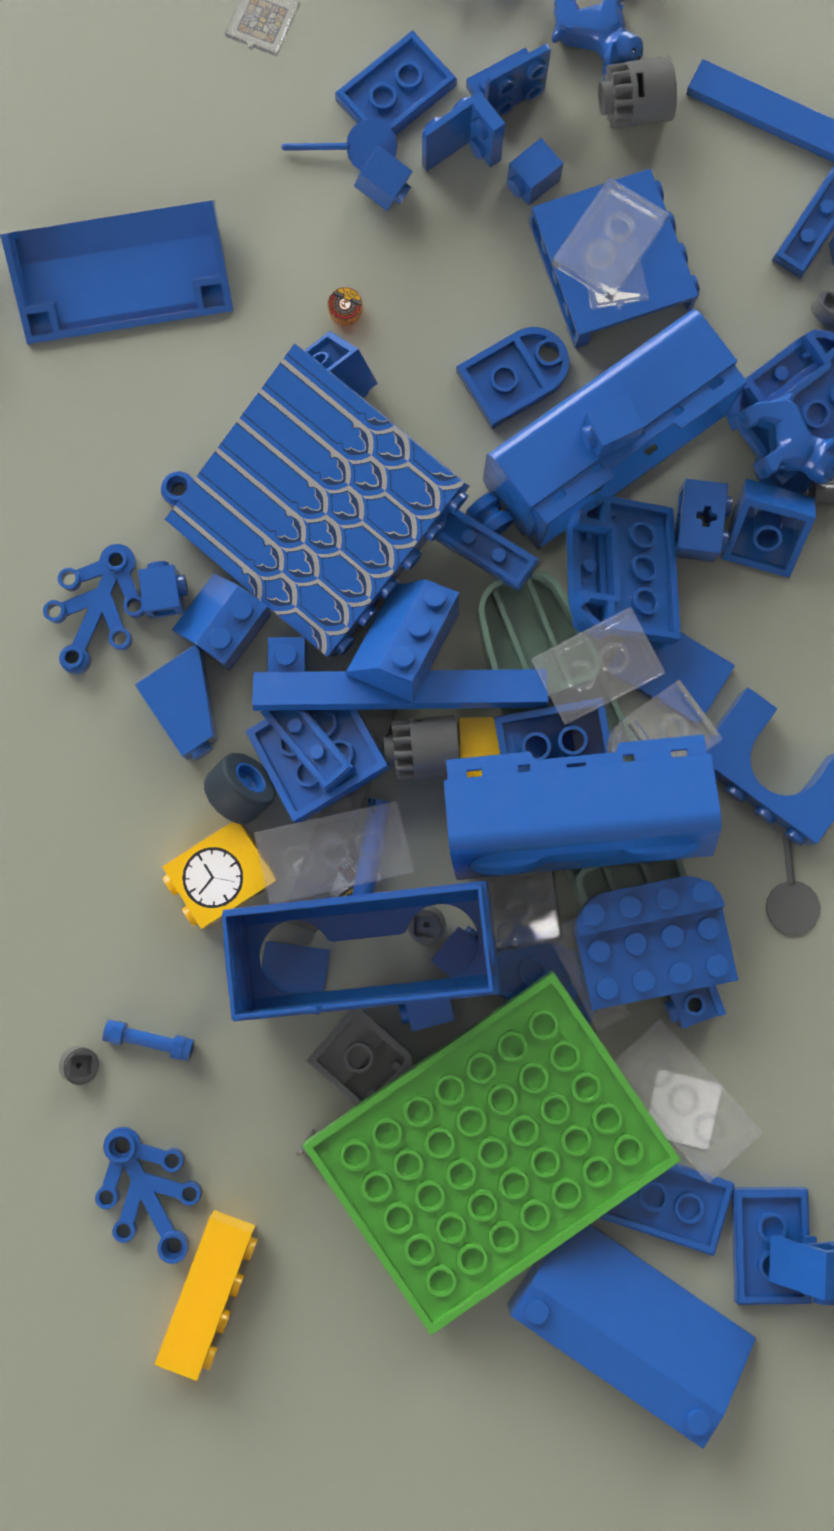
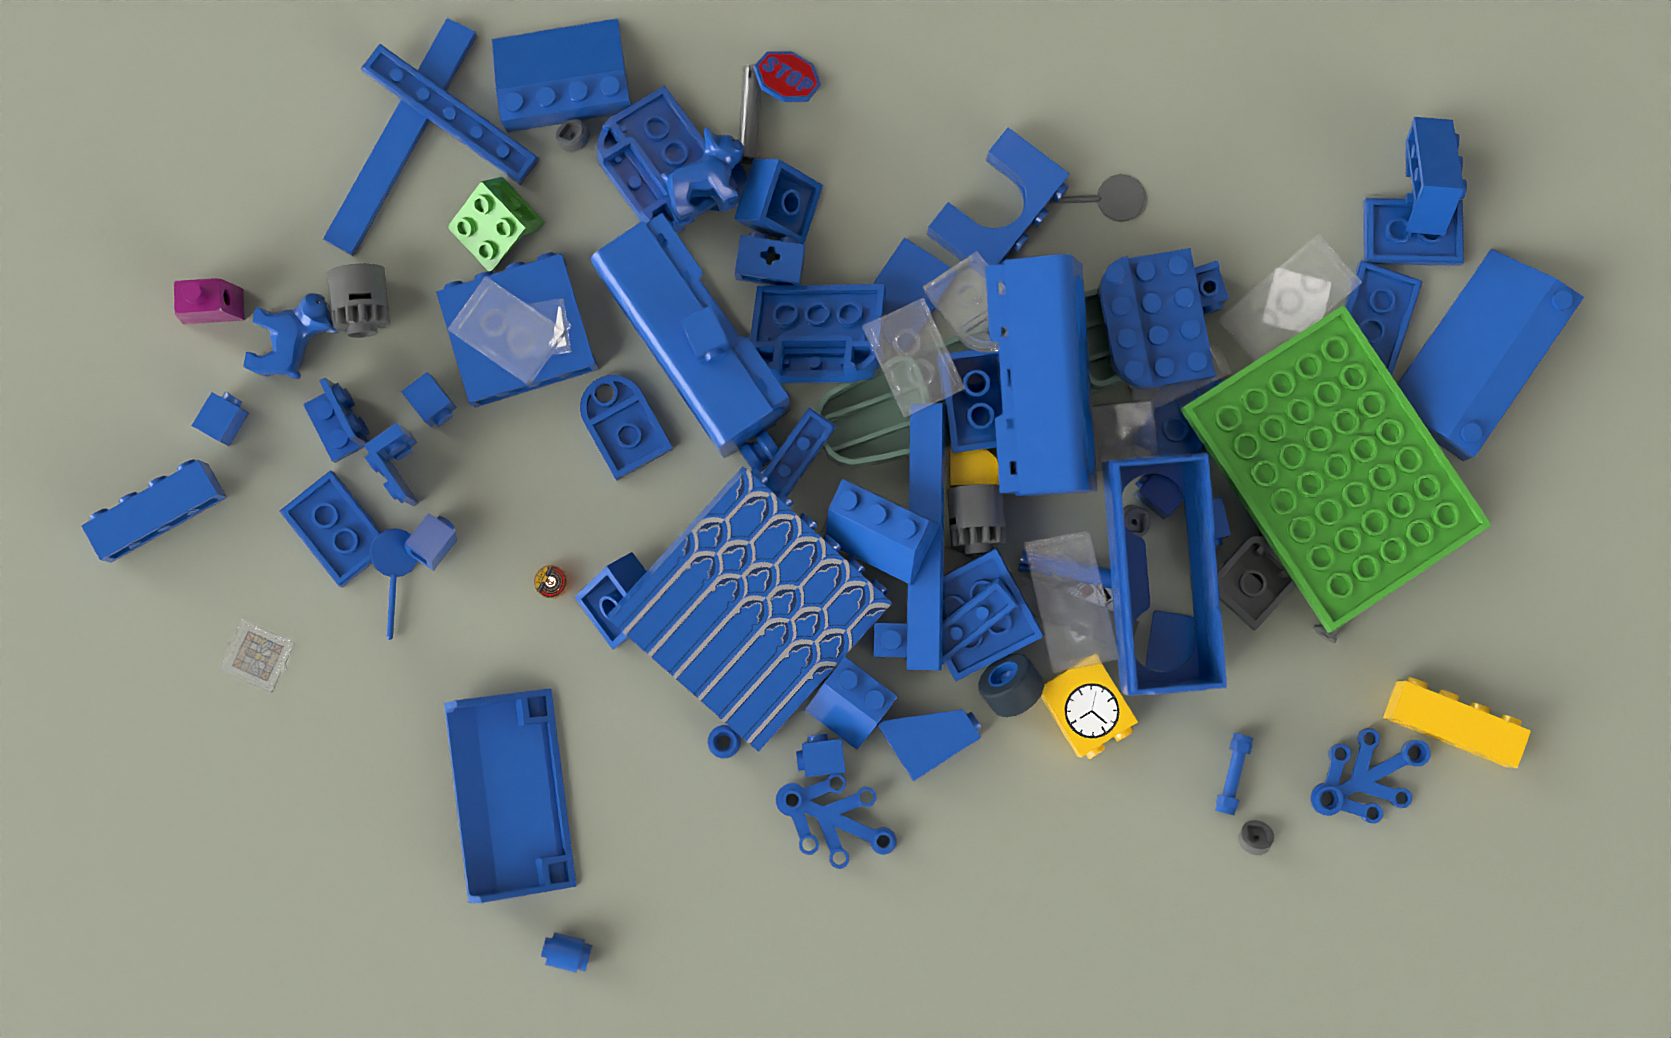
camera: 85 degrees left, 0 degrees up
(732, 229) = (494, 221): none -> bracket

